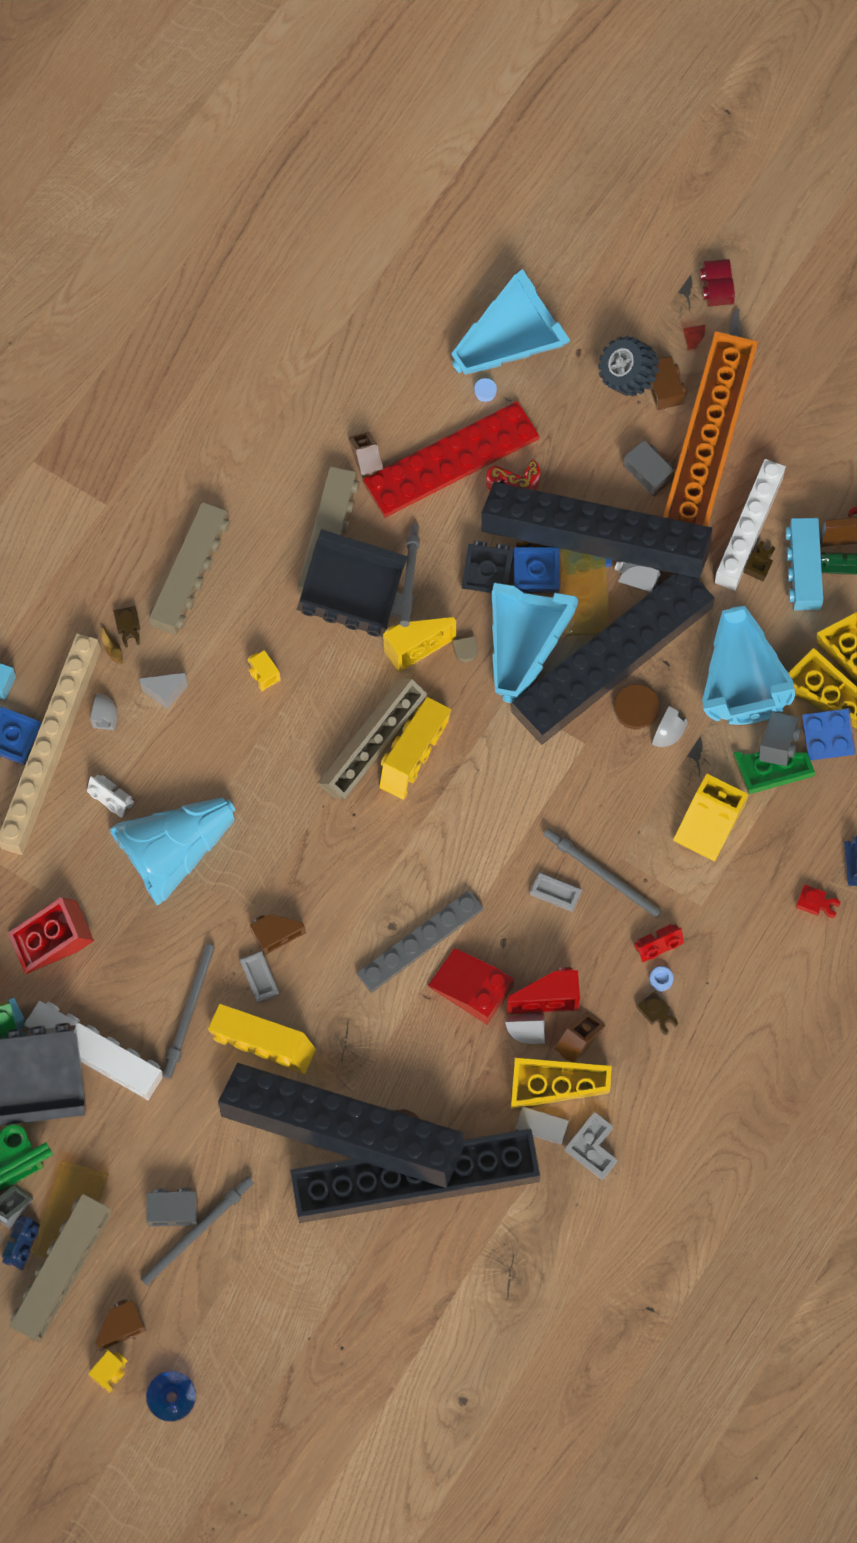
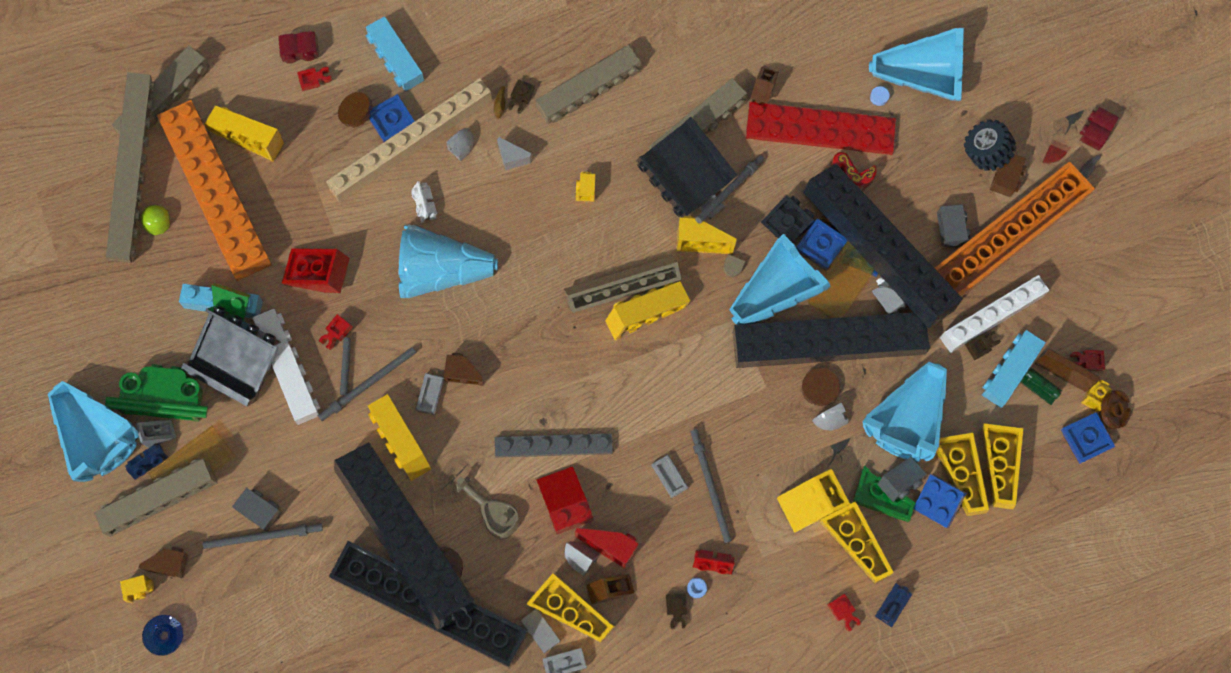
camera: 30 degrees right, 5 degrees up
(117, 978) = (337, 329): none -> red plate
(153, 1010) = (345, 366): none -> dark grey bar
(418, 1046) = (499, 516): none -> dark tan piece
(781, 825) = (857, 539): none -> yellow wedge

